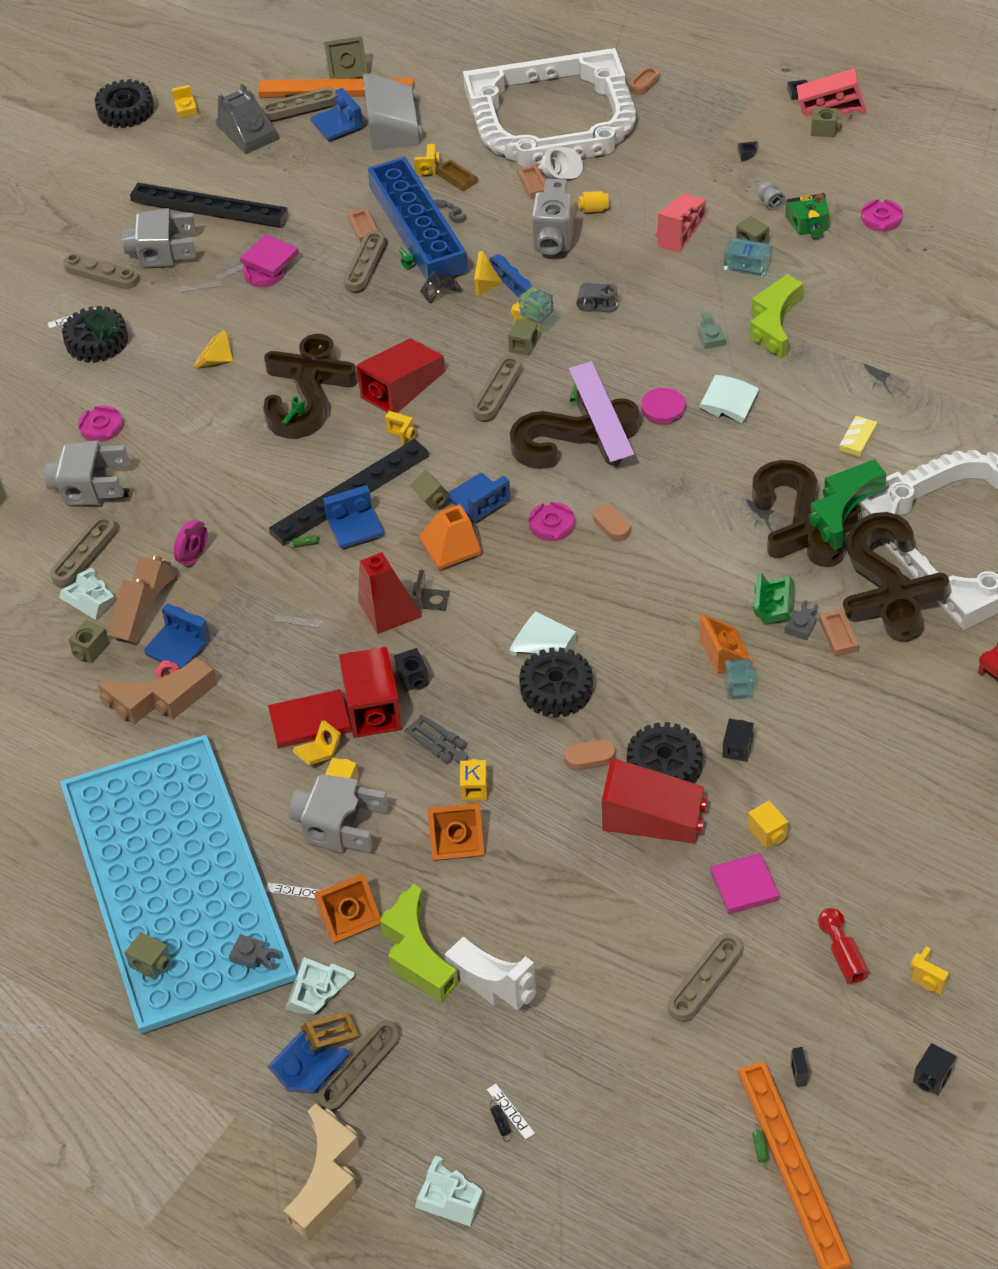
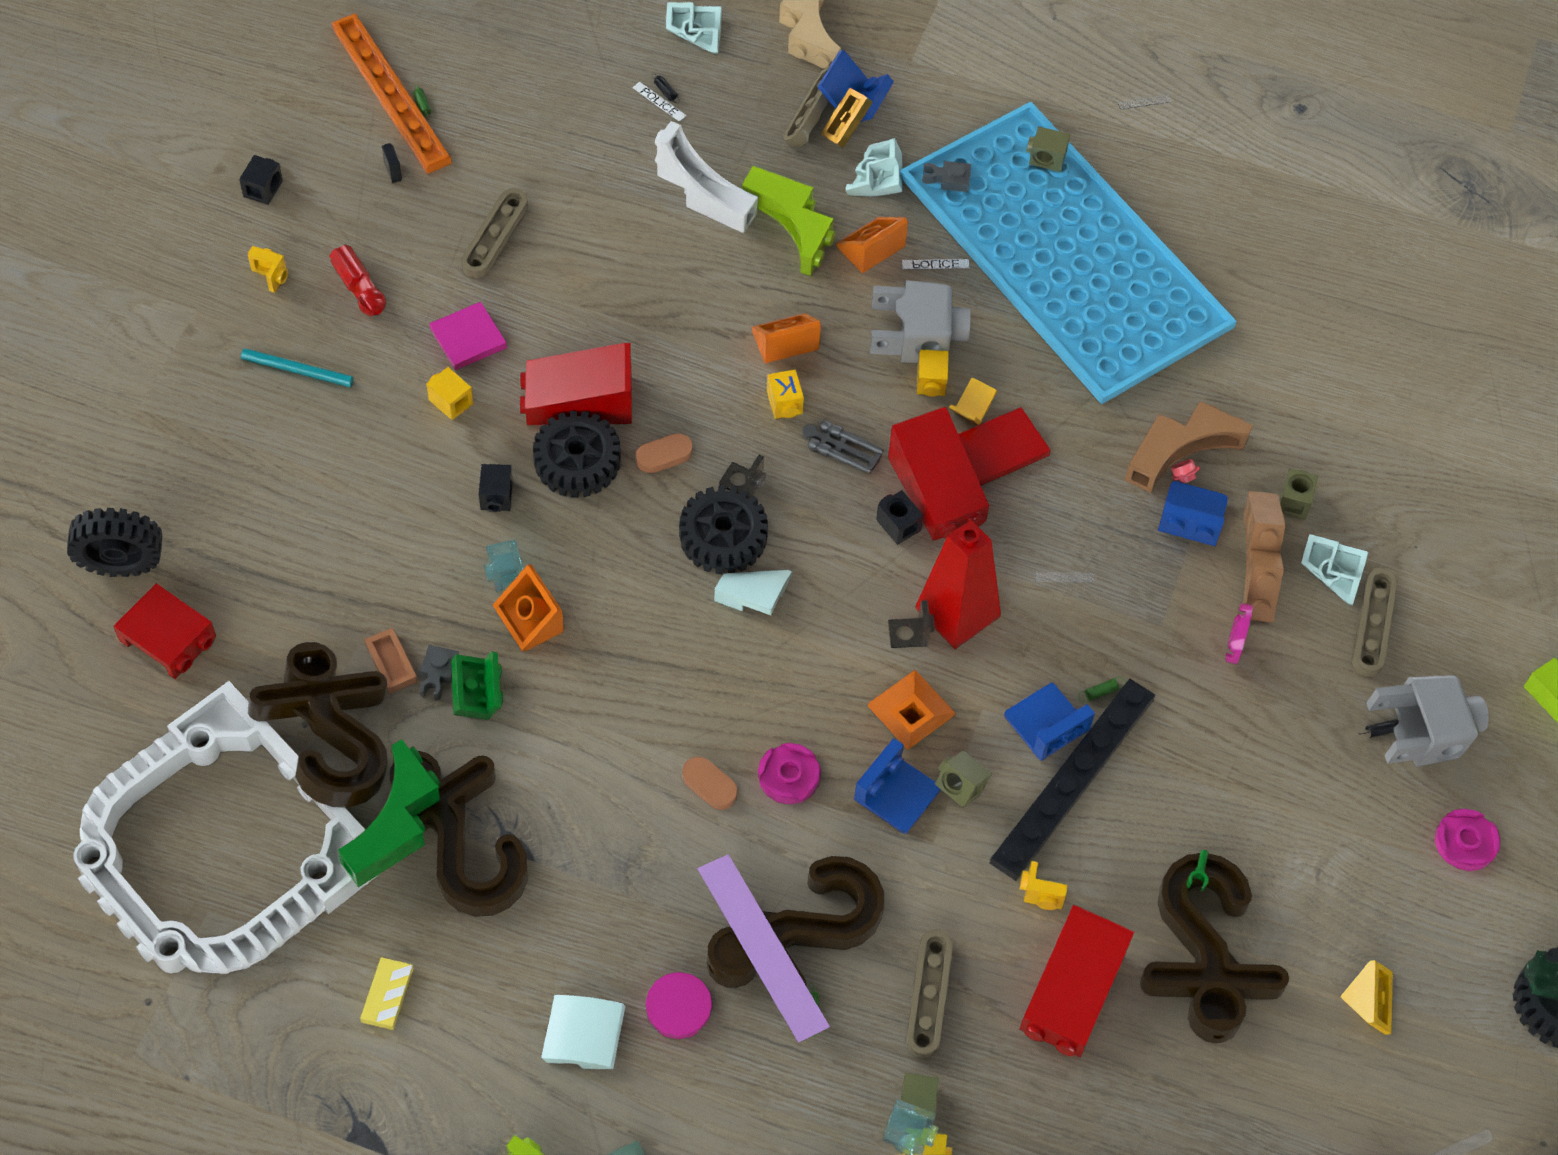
camera: 160 degrees right, 10 degrees up
(521, 717) = (753, 477): none -> clear smoke bracket
(905, 878) = (297, 367): none -> teal bar

